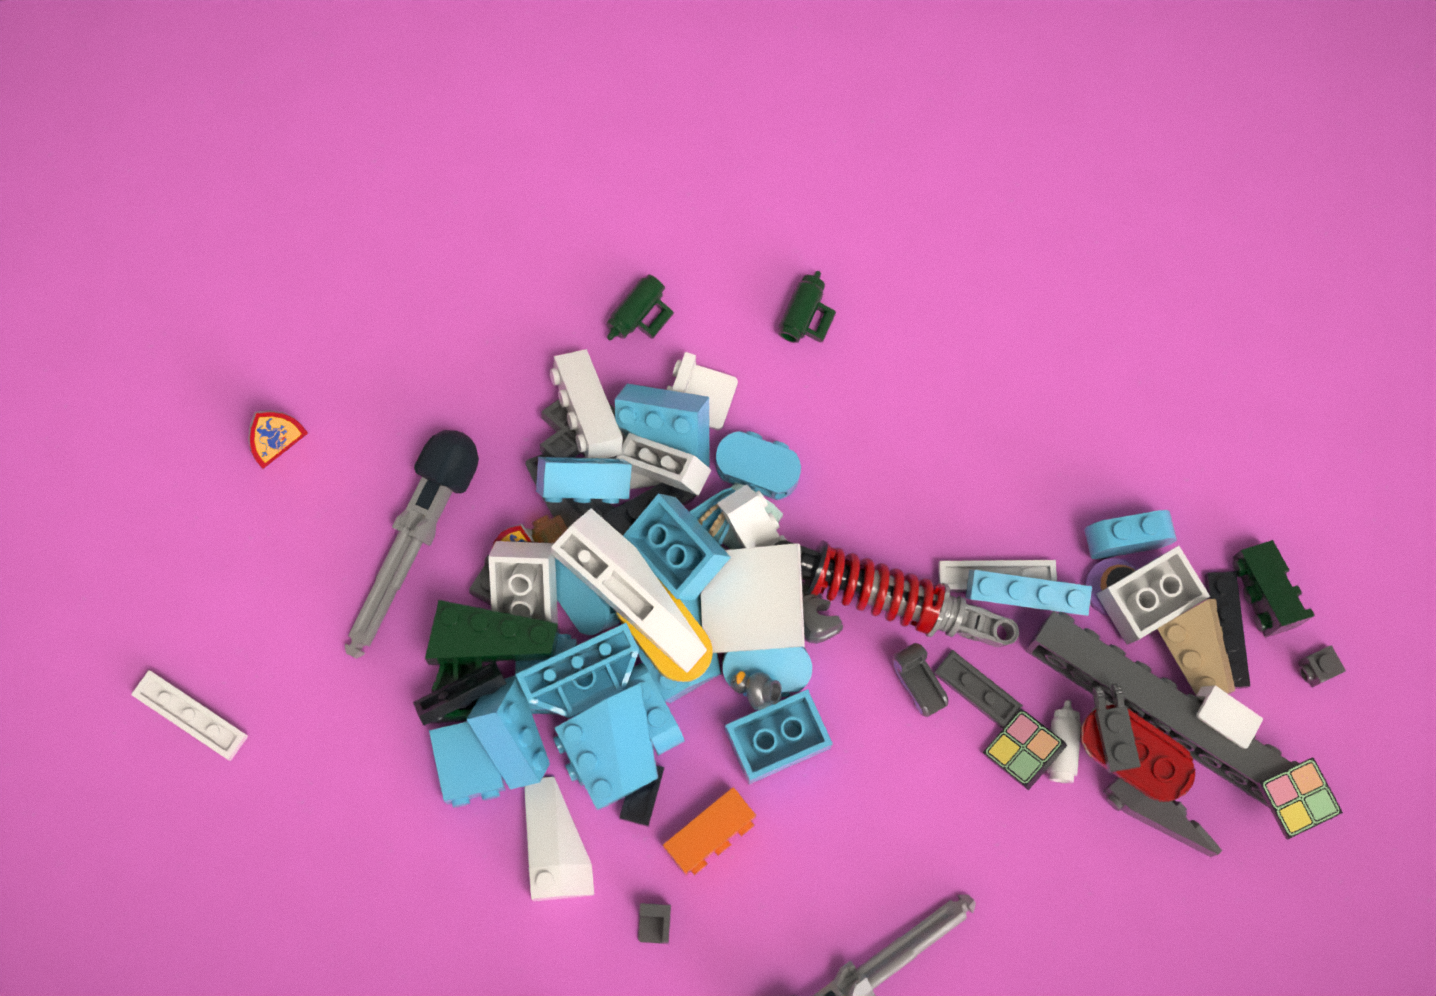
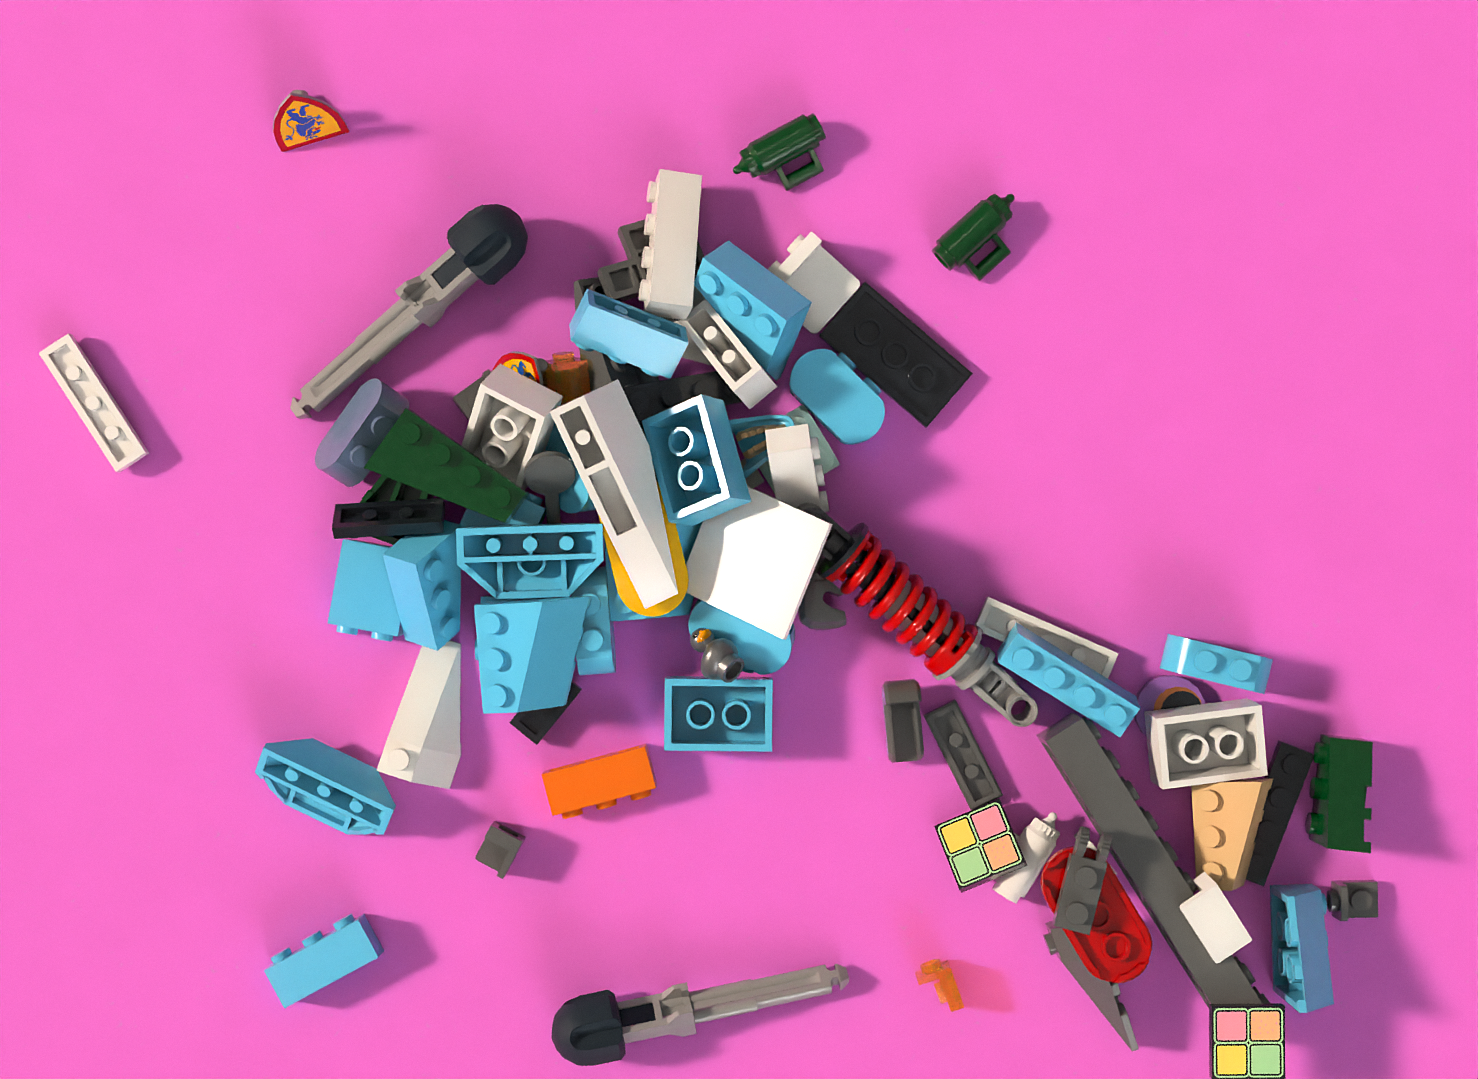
camera: 30 degrees right, 15 degrees up
(407, 644) = (359, 432): none -> sand blue brick
(496, 933) = (327, 785): none -> medium azure wedge
(568, 609) = (550, 475): none -> dark grey piece
(789, 417) = (895, 354): none -> black tile
(1053, 873) = (946, 988): none -> bracket
(1299, 715) = (1300, 946): none -> medium azure wedge

